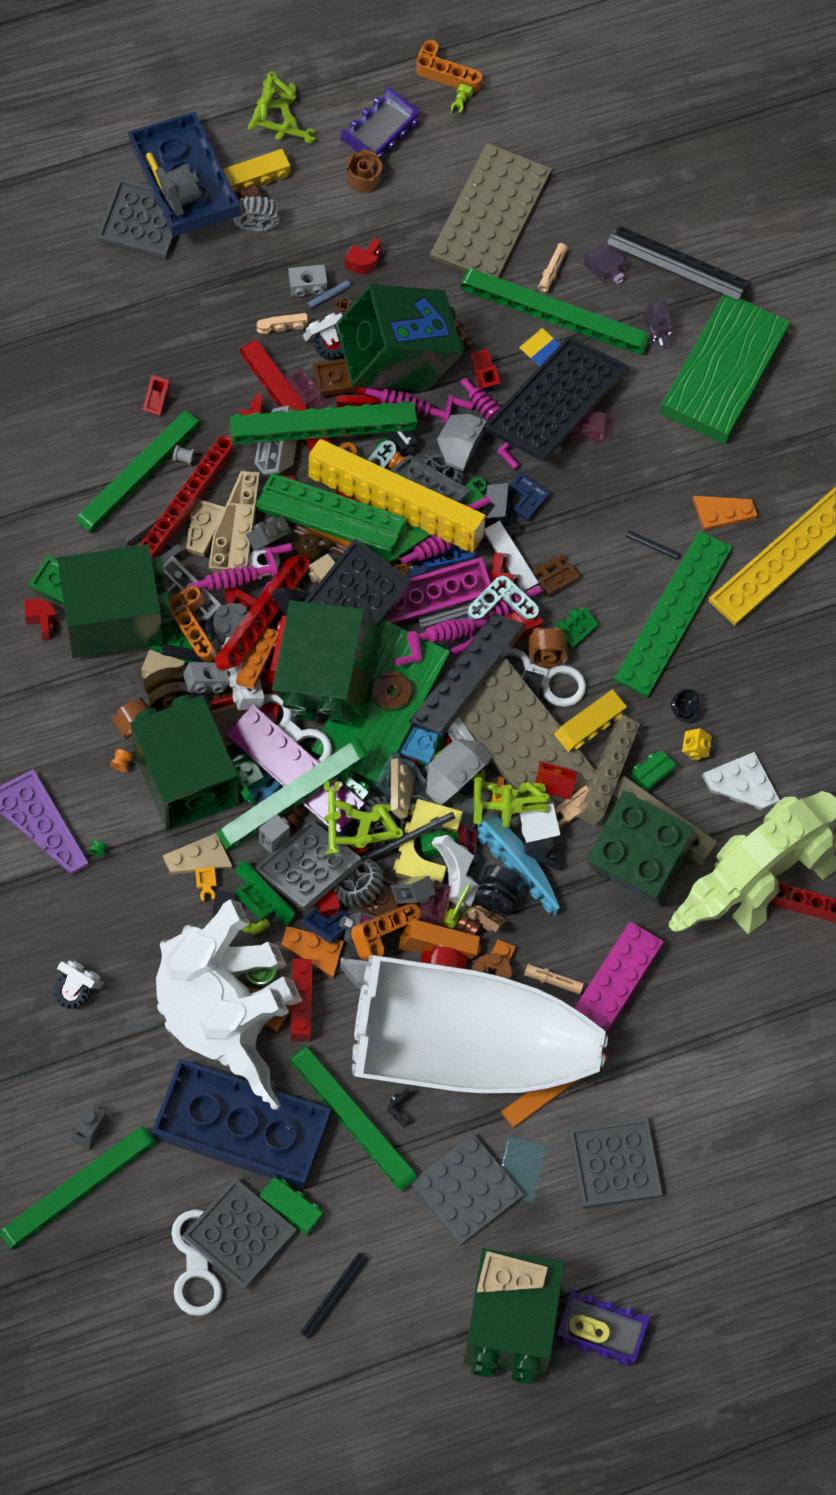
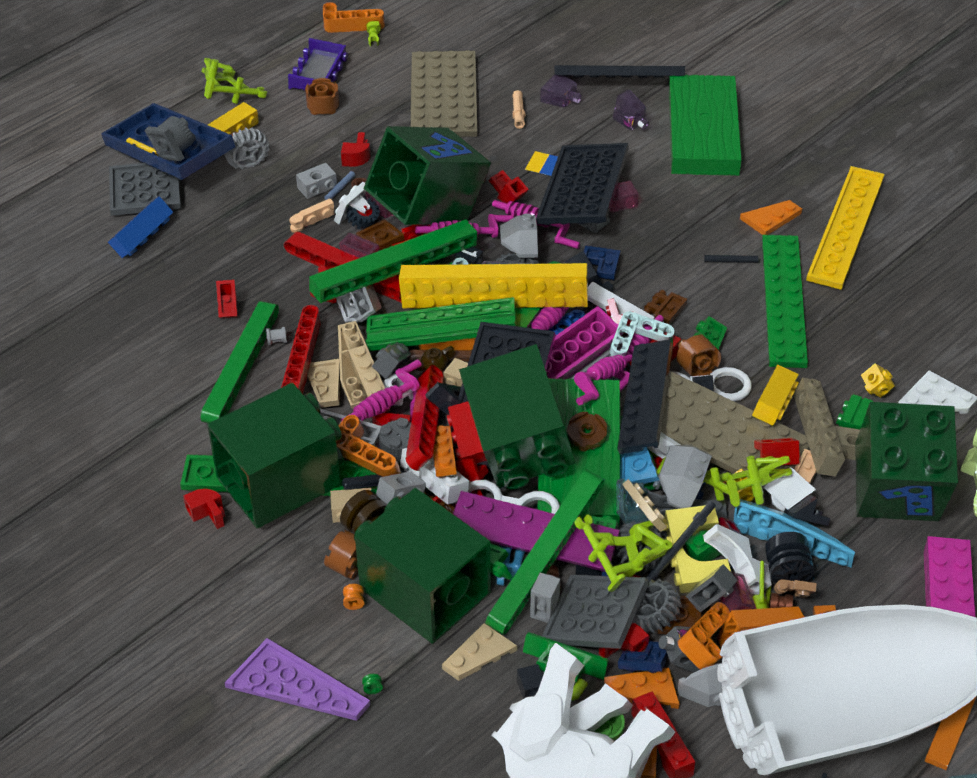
camera: 20 degrees left, 20 degrees down
(115, 271) = (140, 227): none -> blue brick
(206, 880) = (499, 668): light orange plate -> none
(555, 311) = (545, 134): green beam -> none
(686, 705) = (846, 356): black hair -> none

